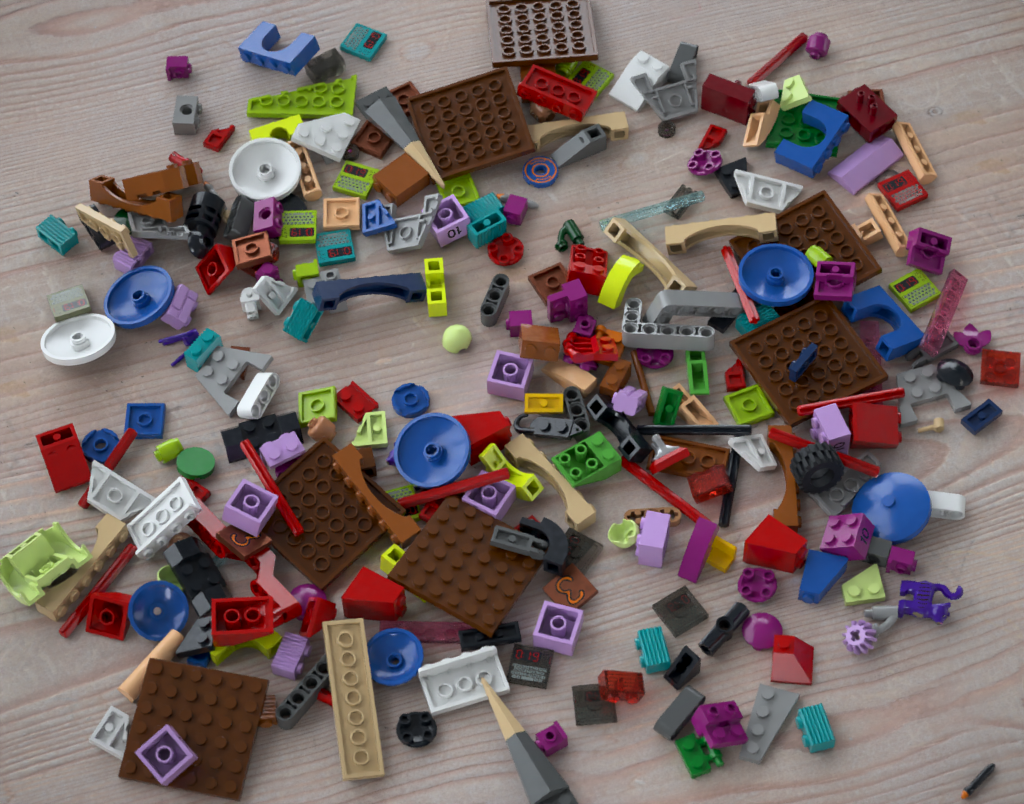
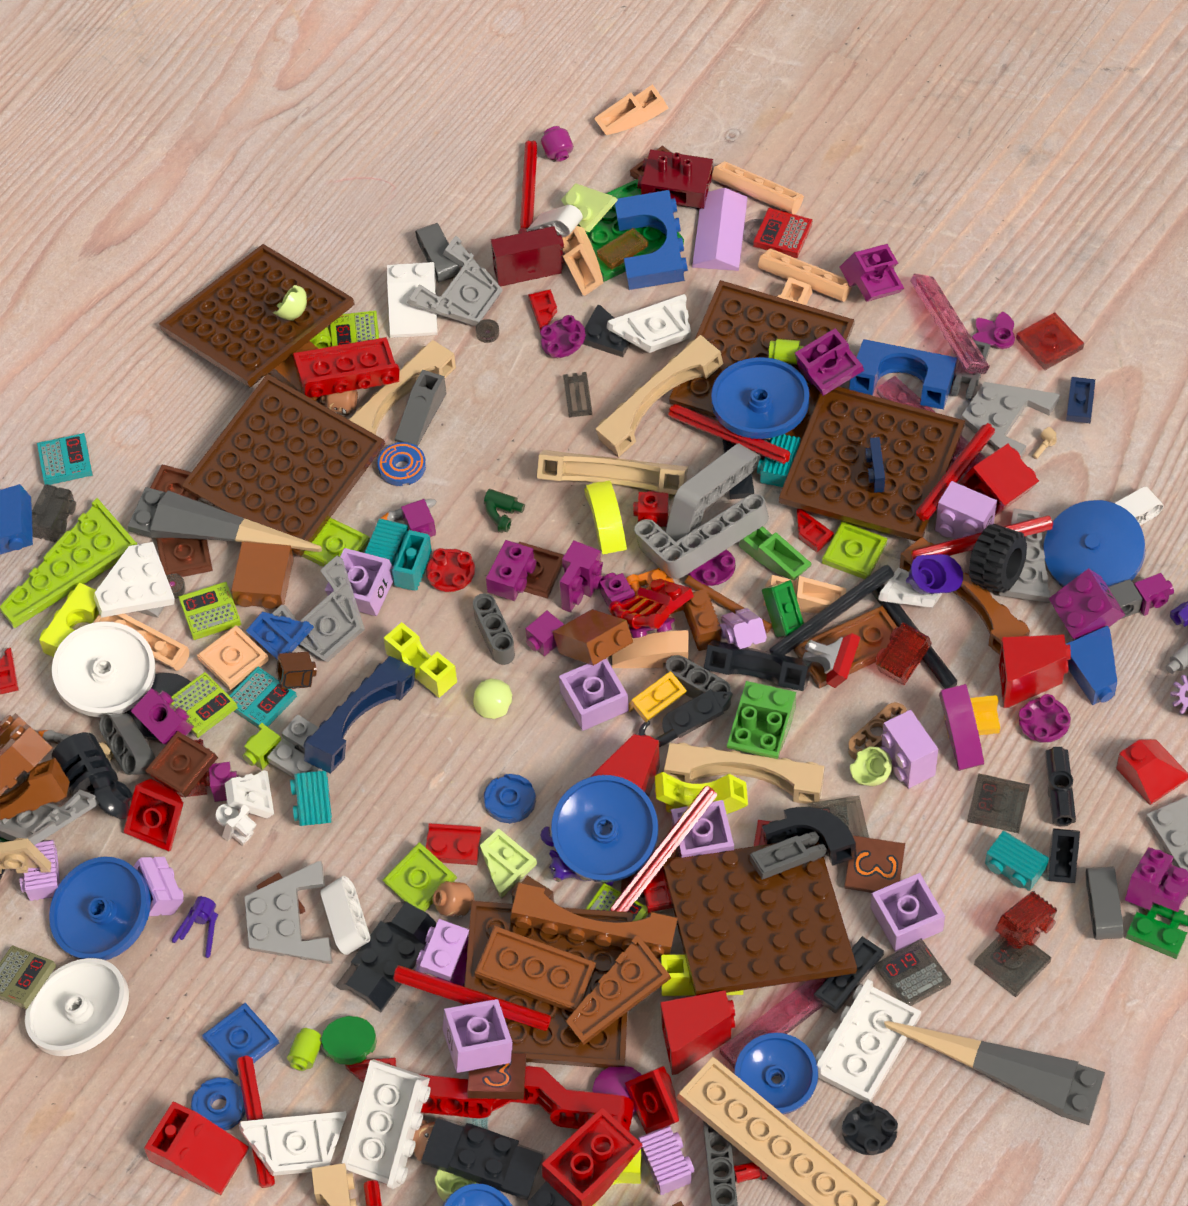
camera: 40 degrees left, 0 degrees up
(202, 349) = (232, 913): teal brick -> none
(321, 499) = (535, 969): none -> dark orange tile
(354, 544) = (623, 987): none -> dark orange wing
(364, 244) = (295, 670): none -> reddish brown brick
(534, 273) = (510, 570): none -> magenta brick
(553, 745) = (1013, 1019): magenta brick -> none
(558, 35) = (292, 304): none -> yellowish green hair
(589, 267) = (555, 526): red slope -> none
(648, 292) = (652, 506): none -> red brick
(658, 208) = (562, 421): clear light blue axle -> none
(662, 490) = (834, 696): red axle -> none
(760, 630) = (1094, 761): magenta dish -> none
(772, 450) = (935, 574): none -> dark purple piece
(792, 133) = (622, 247): none -> clear orange tile
(864, 588) = (1143, 645): yellowish green wing -> none
(884, 56) = (631, 111): none -> light nougat slope
(914, 290) = (893, 322): lime tile -> none
(954, 373) = (1015, 375): black dish -> none

